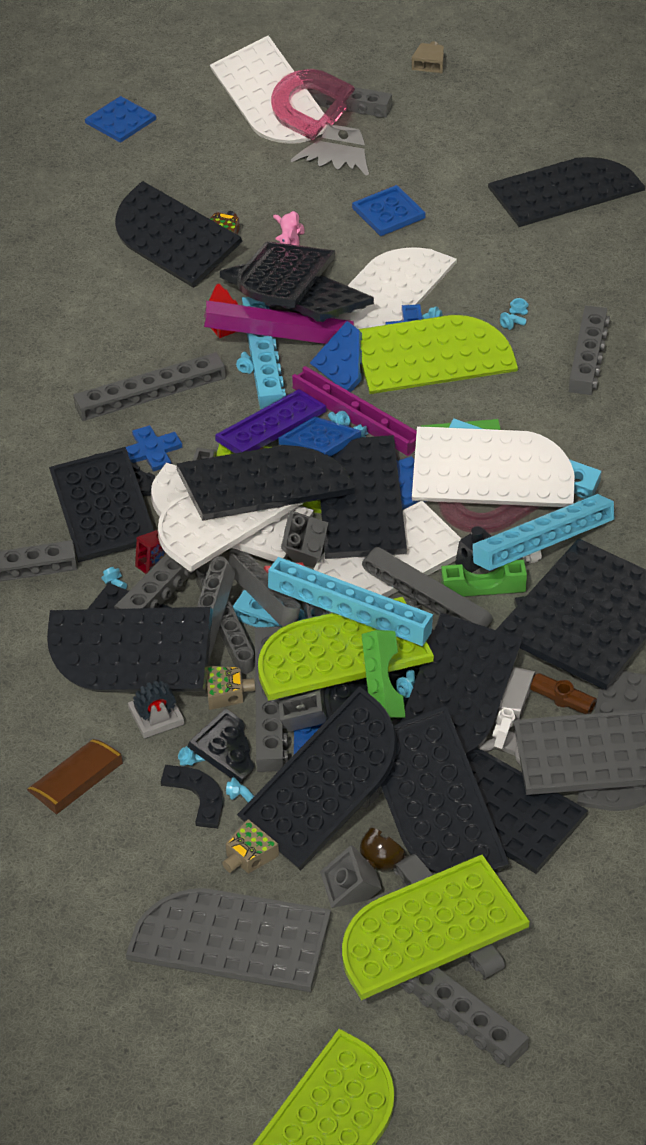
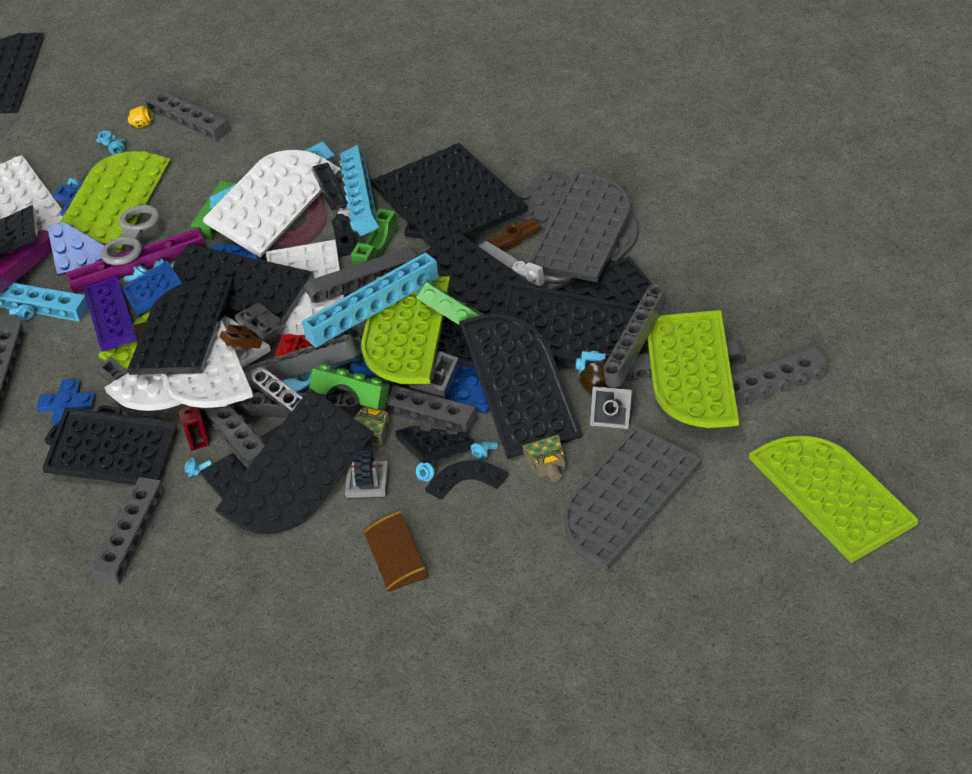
camera: 60 degrees left, 0 degrees up
(250, 621) = (370, 391): none -> bright green arch
(265, 531) = (239, 336): none -> reddish brown plate
(380, 388) = (130, 235): none -> light grey bar
(397, 831) = (588, 358): none -> medium azure bracket
(439, 852) = (634, 335): none -> dark grey beam
(535, 502) = (329, 186): none -> black plate
(562, 316) = (140, 117): none -> yellow head

